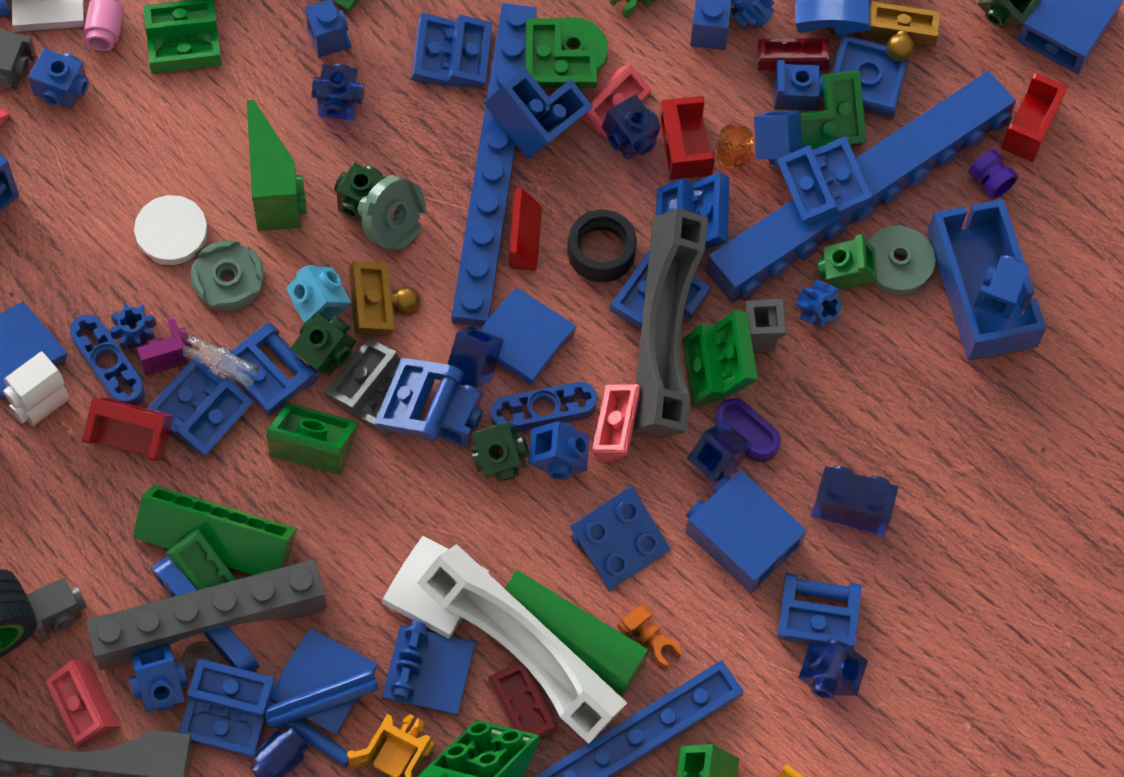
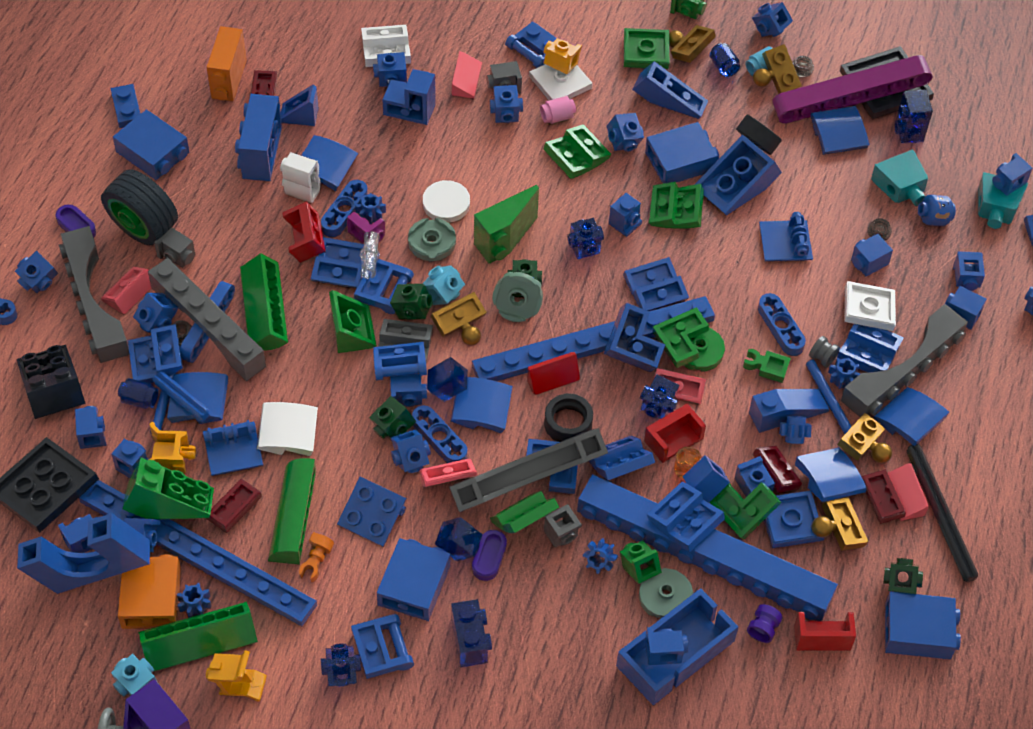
camera: 65 degrees right, 10 degrees down
(199, 561) = (237, 301): green plate -> none
(572, 686) = (284, 433): white arch -> none

